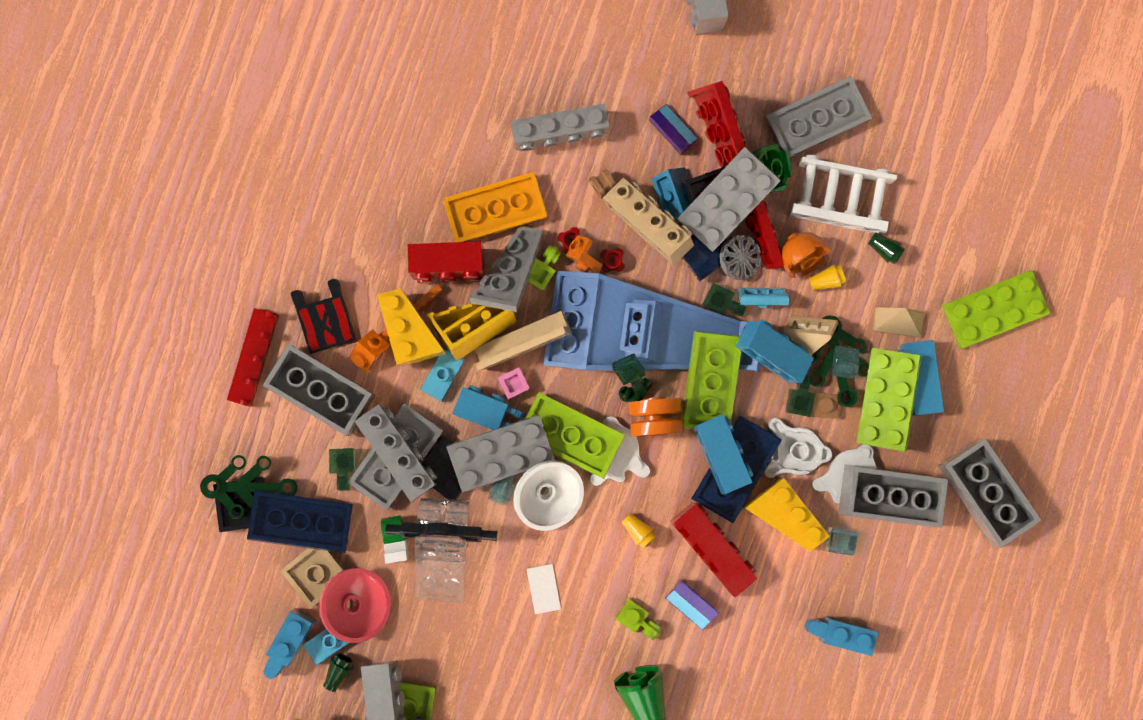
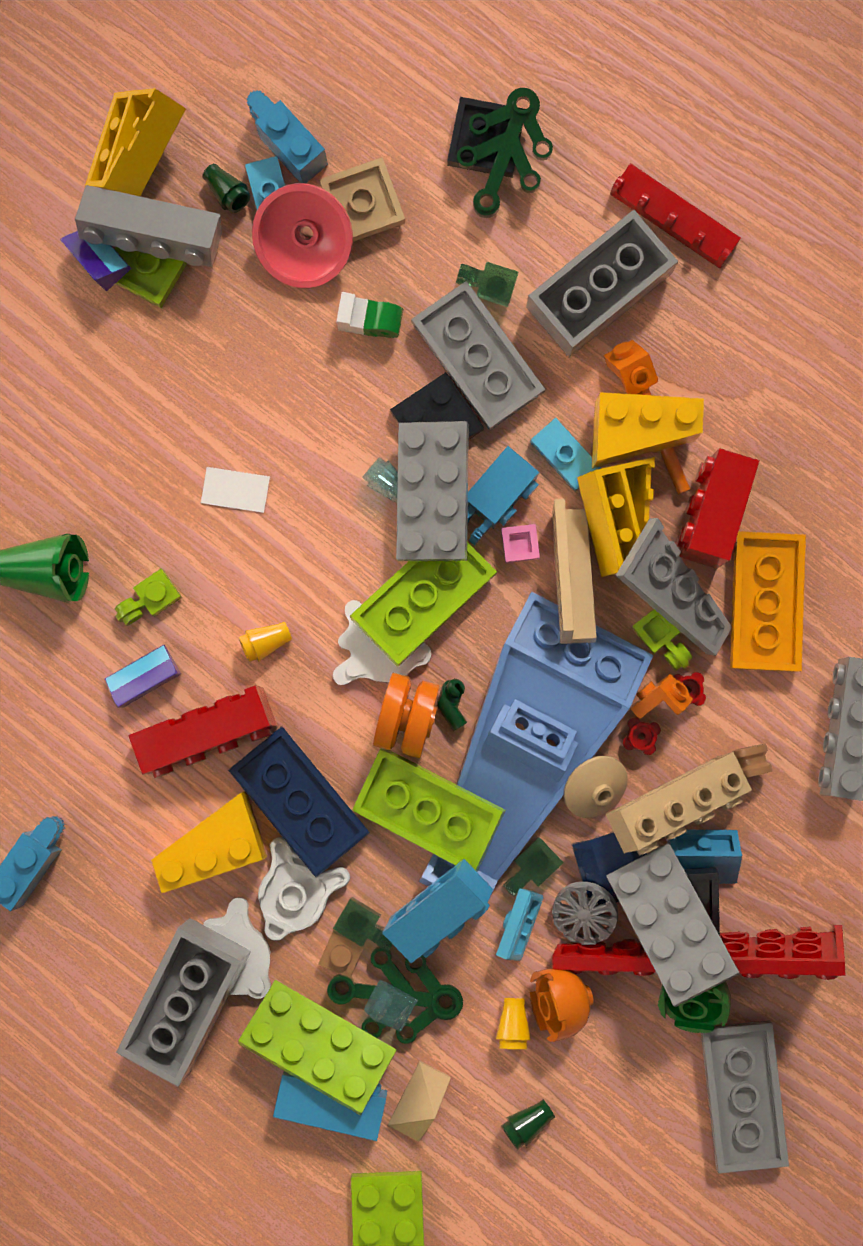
camera: 115 degrees right, 0 degrees up
(299, 521) = (436, 200): dark blue tile -> none
(325, 321) = (690, 325): flag -> none
(396, 453) = (483, 354): light grey brick -> none
(441, 547) = (338, 371): clear piece -> none
(557, 503) = (338, 536): white dish -> none
(631, 371) = (481, 703): clear green plate -> none
(657, 278) = (595, 786): none -> tan dish
(673, 129) = (796, 885): dark purple slope -> none
(723, 454) = (324, 789): dark azure brick -> none
(810, 332) = (448, 971): tan slope -> none
(841, 541) = (150, 908): clear light blue slope -> none
(850, 217) = (587, 1088): white fence -> none
(989, 493) = (139, 1138): light grey brick -> none

